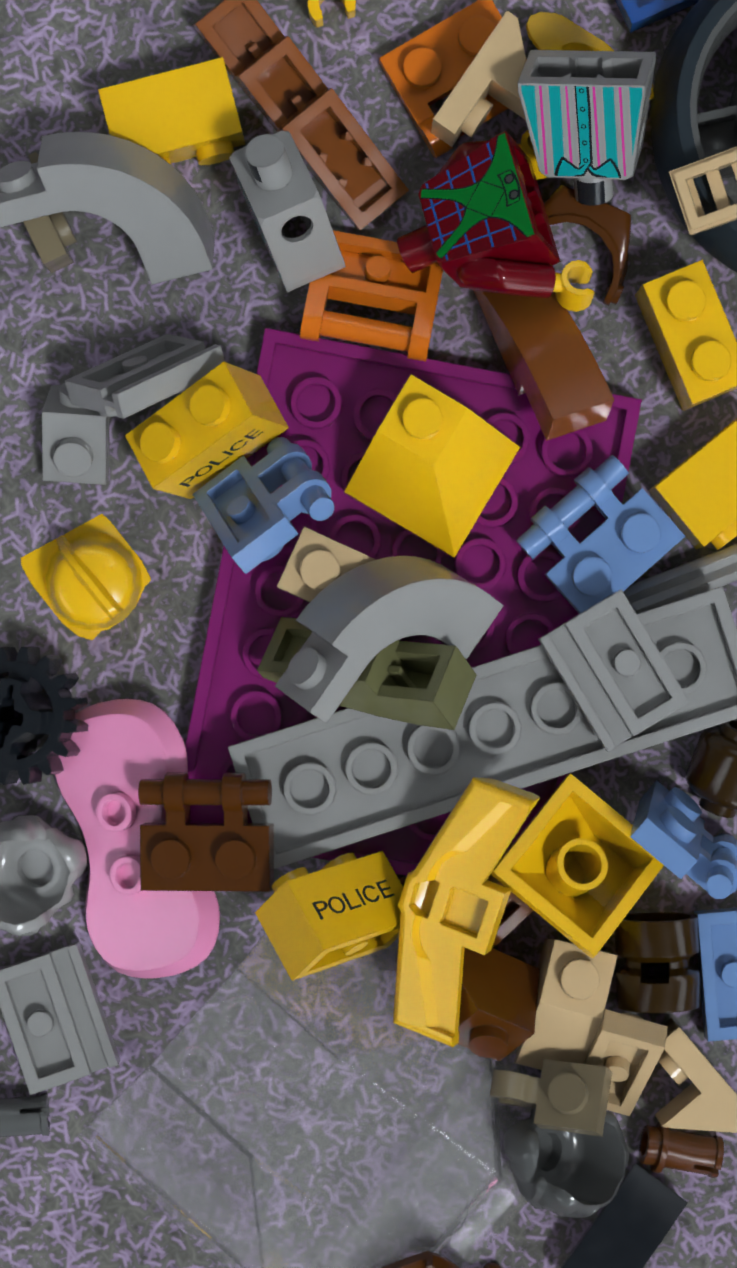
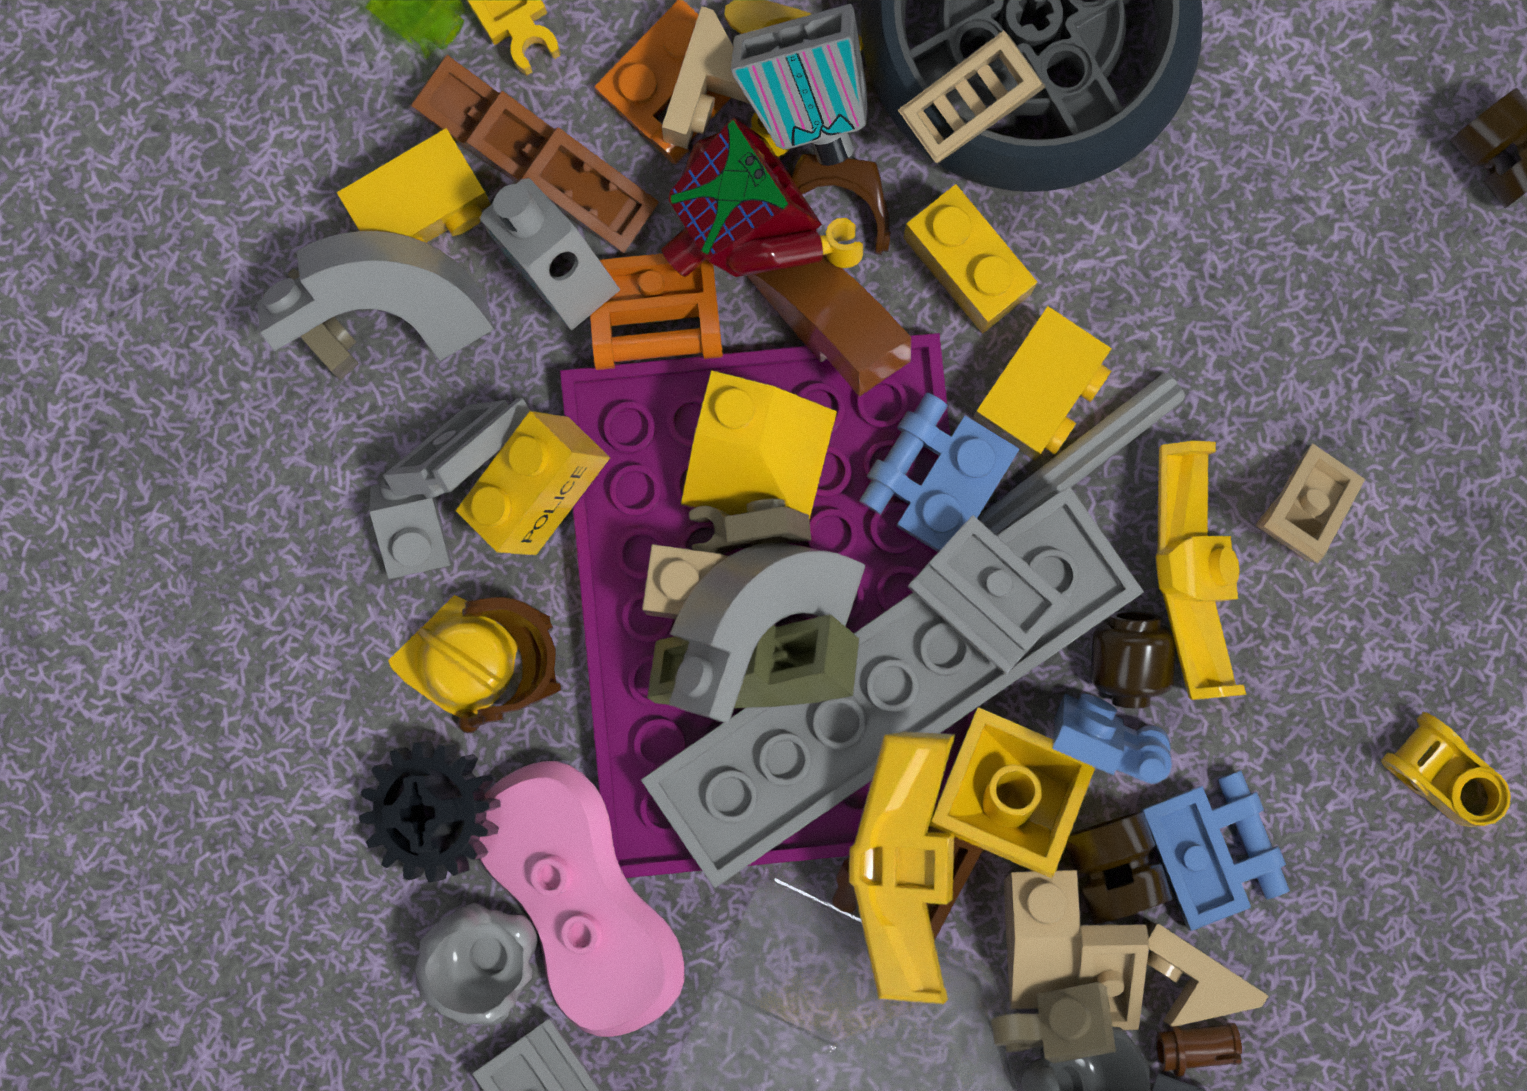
camera: 15 degrees left, 5 degrees down
(165, 593) = (537, 651): none -> reddish brown helmet
(206, 854) = (649, 890): reddish brown plate -> none
(252, 518) = (600, 538): medium blue plate -> none
(332, 913) = (789, 910): yellow brick -> none
(417, 536) = (763, 523): none -> dark tan plate
(496, 1003) = (973, 952): reddish brown slope -> none

